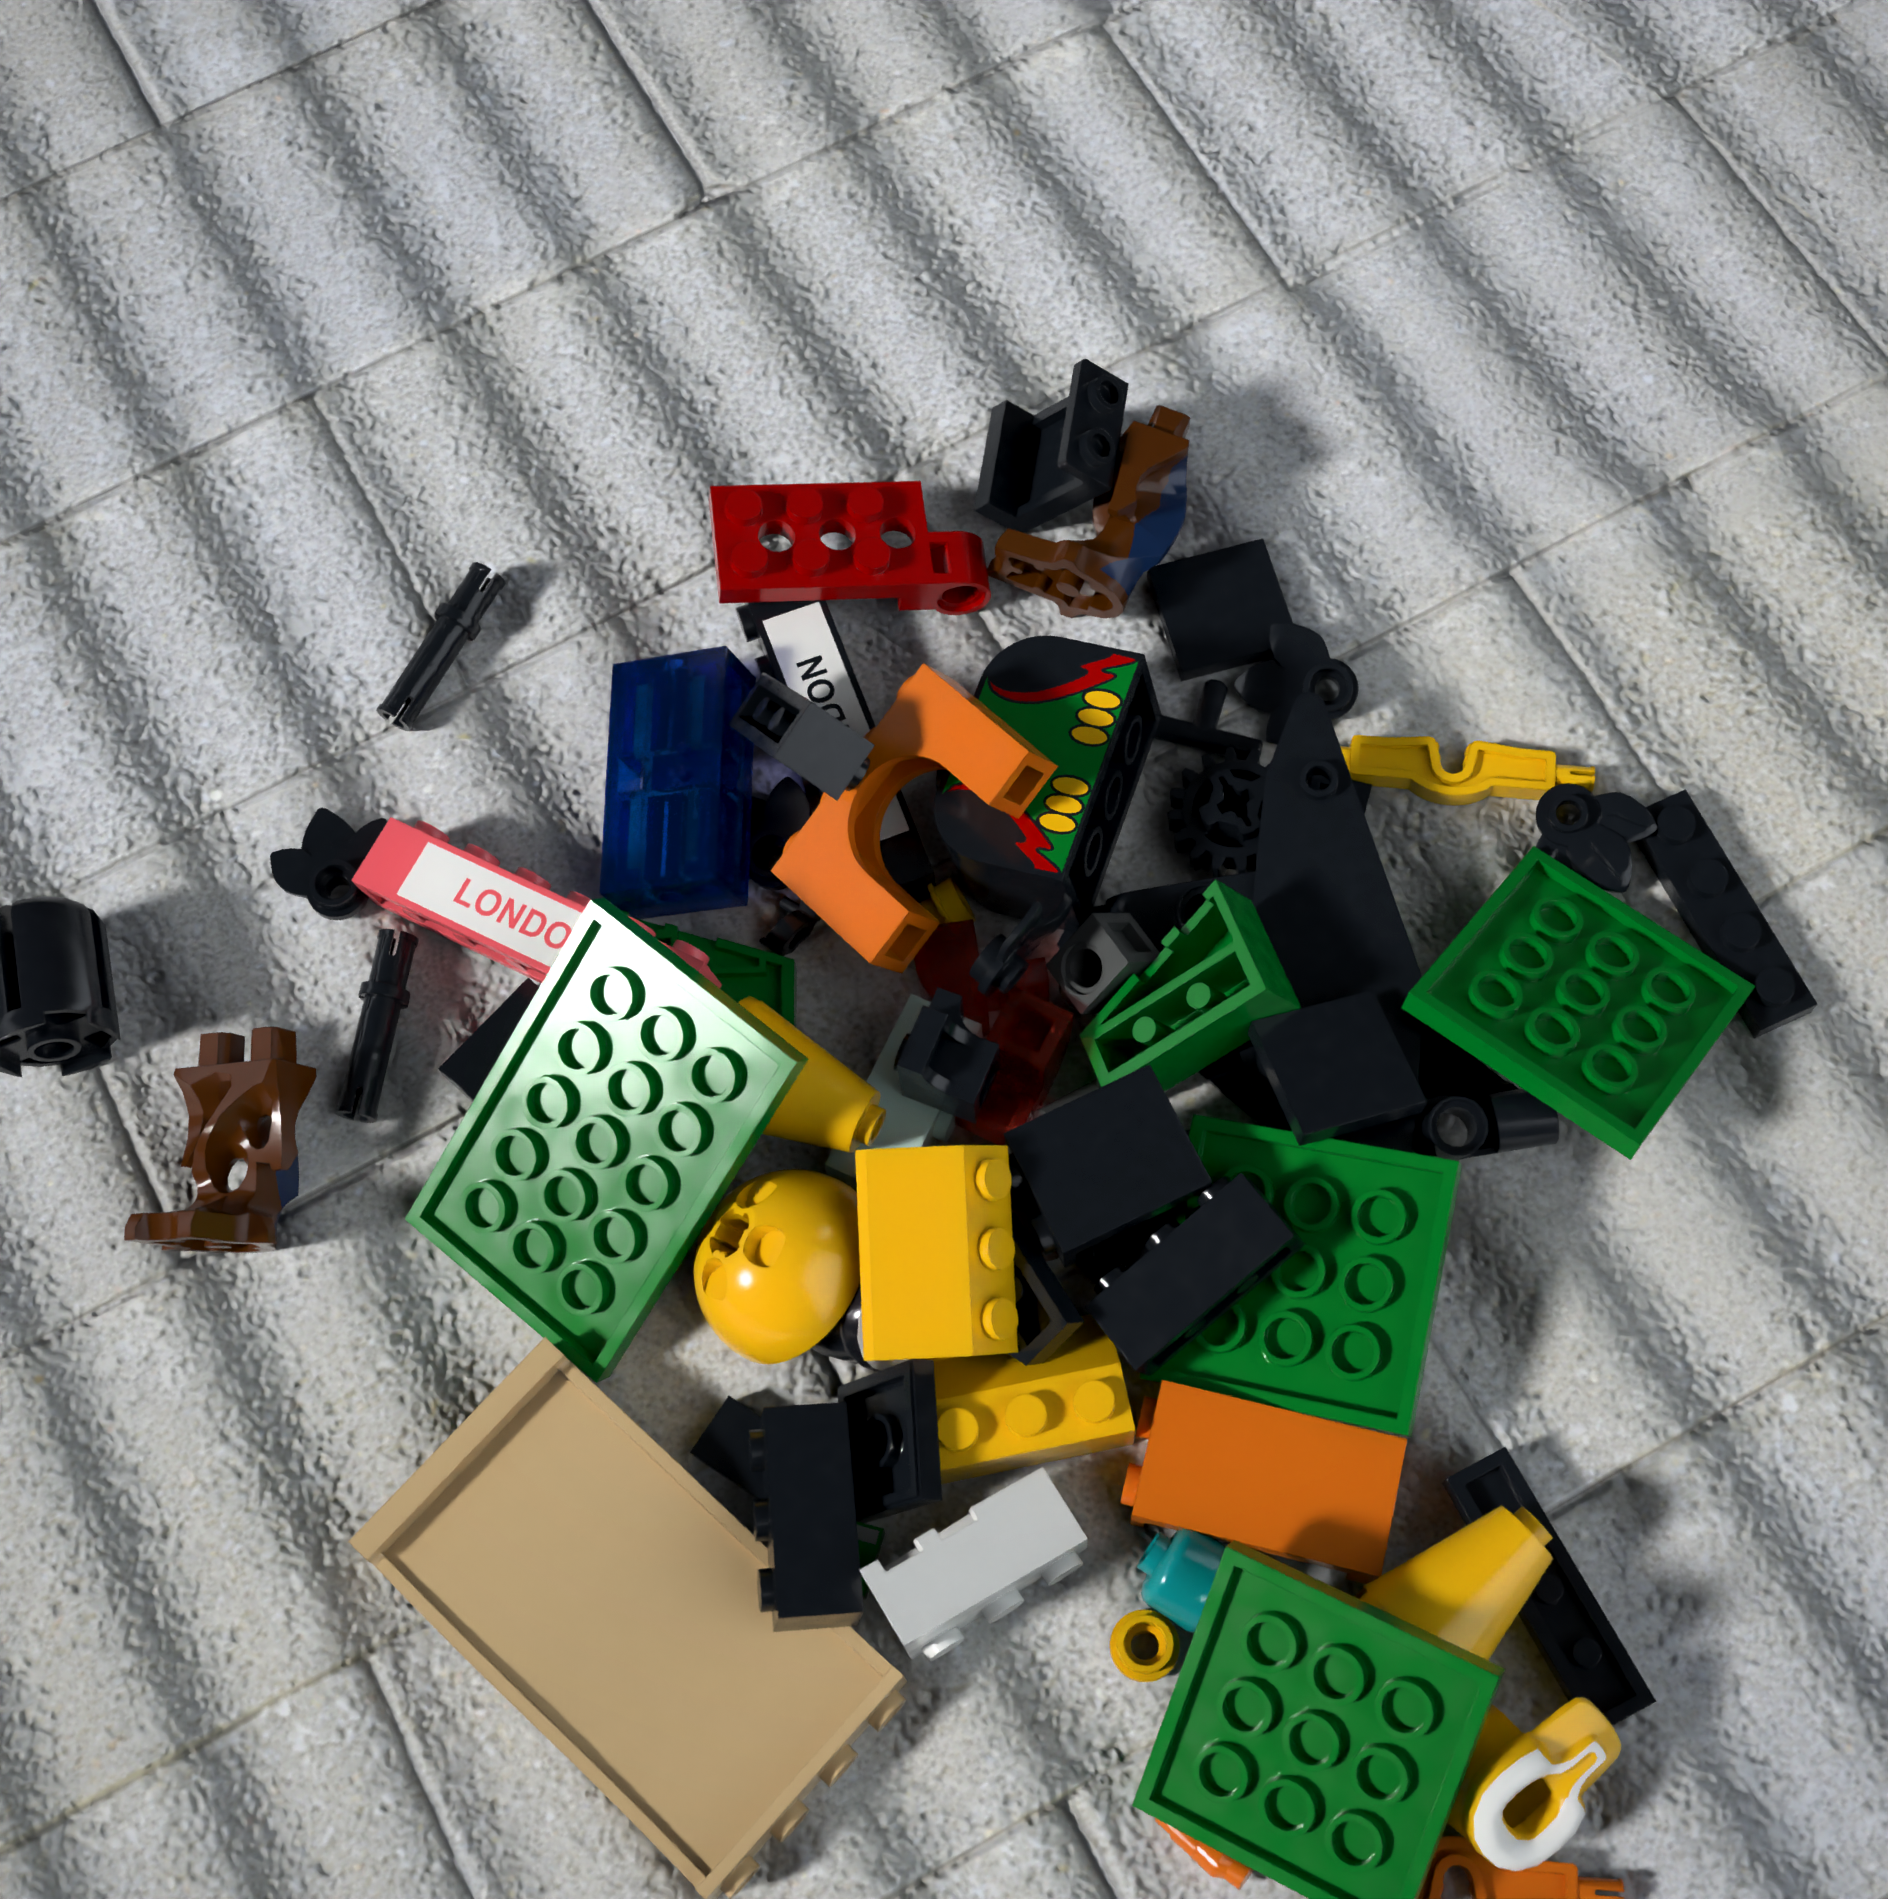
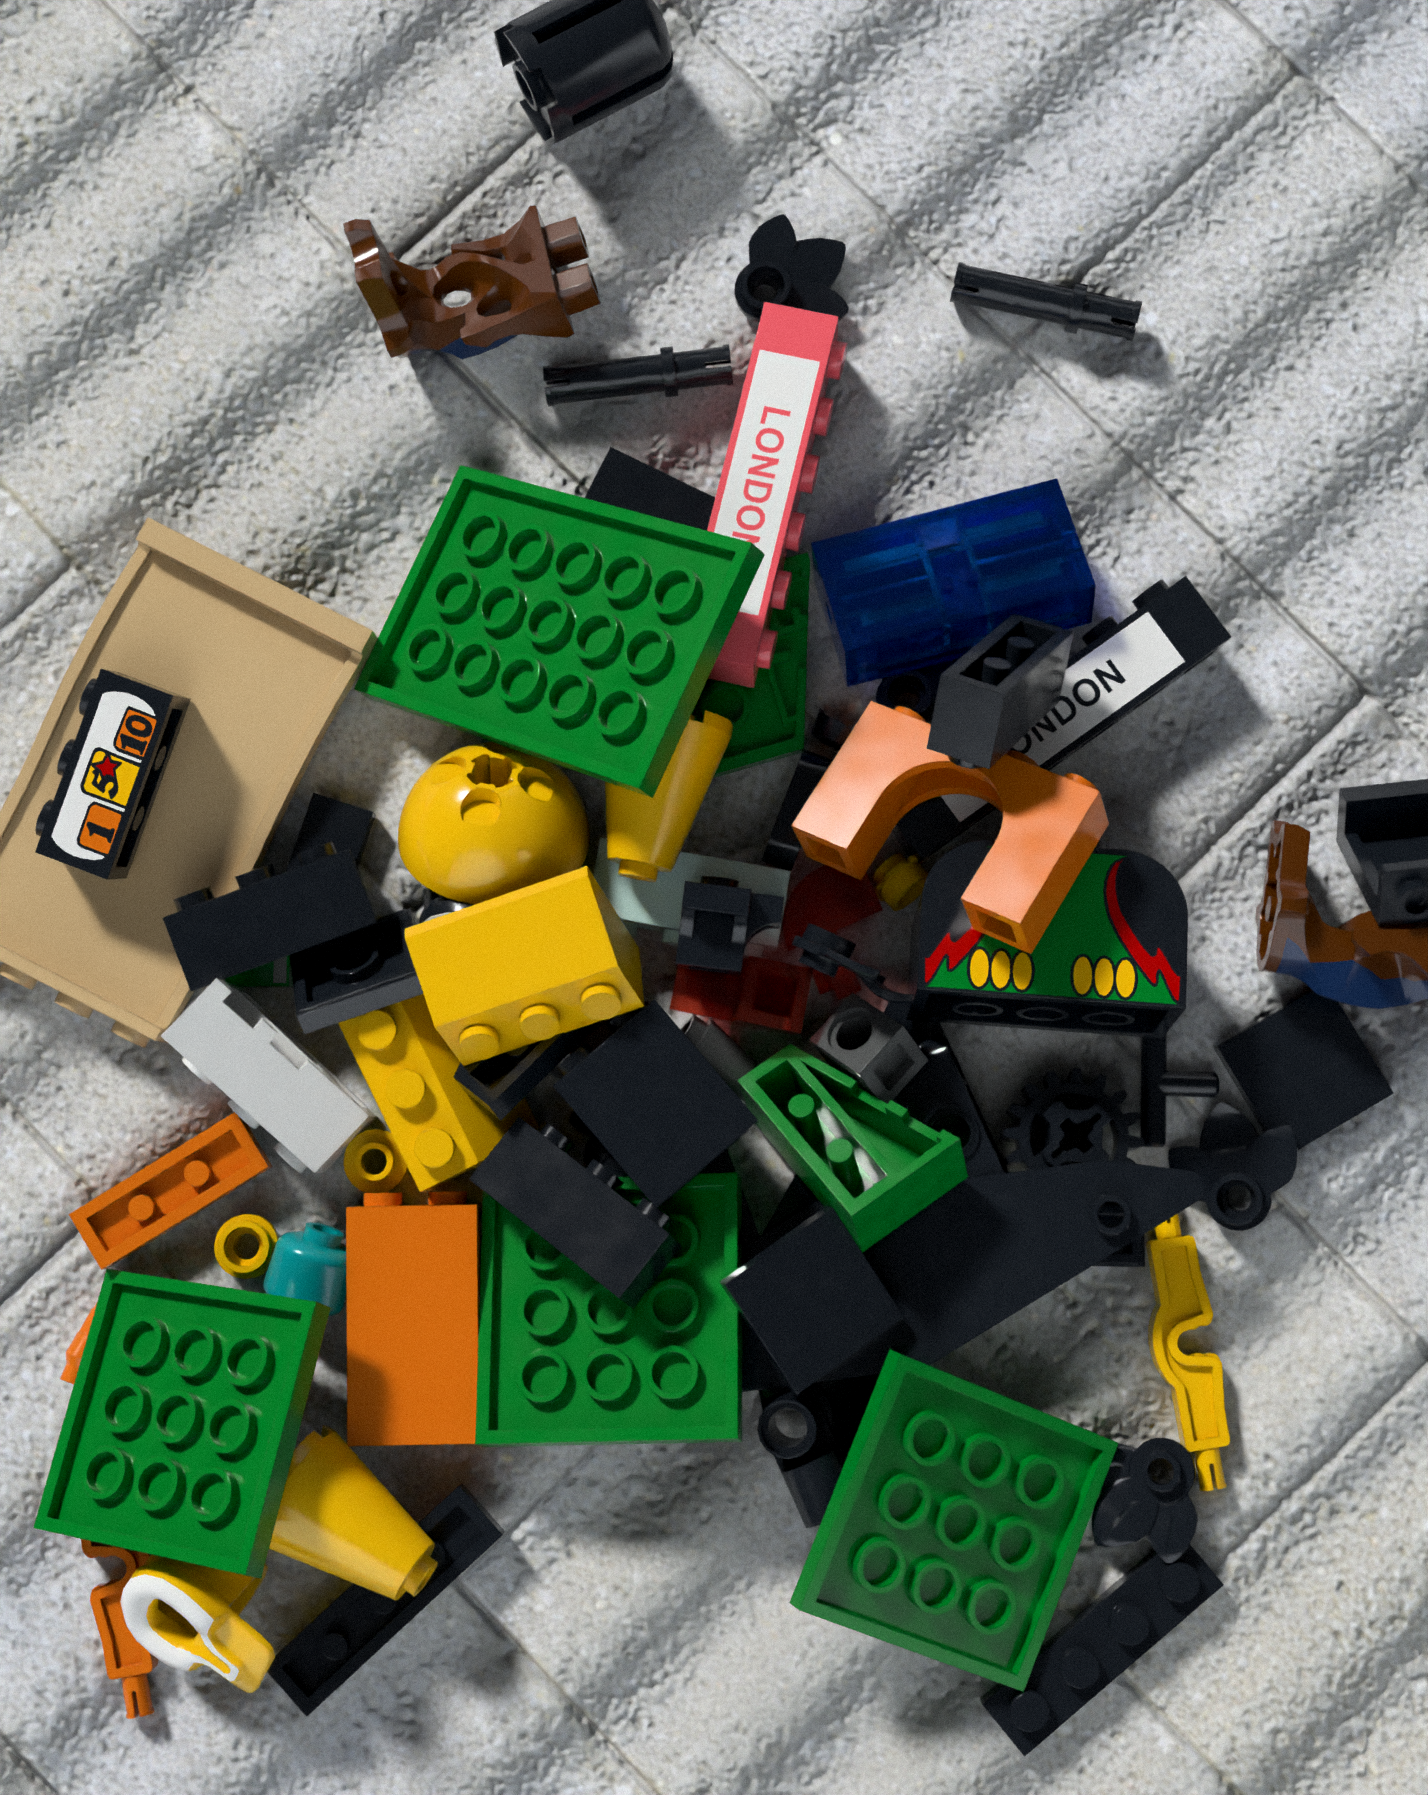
camera: 70 degrees right, 15 degrees up
(605, 1648) = (110, 774): none -> brick
(851, 982) = (783, 843): none -> black beam
(933, 573) = (1255, 769): red hinge -> none
(1066, 1712) = (170, 1190): none -> orange plate
(1090, 1507) = (354, 1162): none -> yellow plate

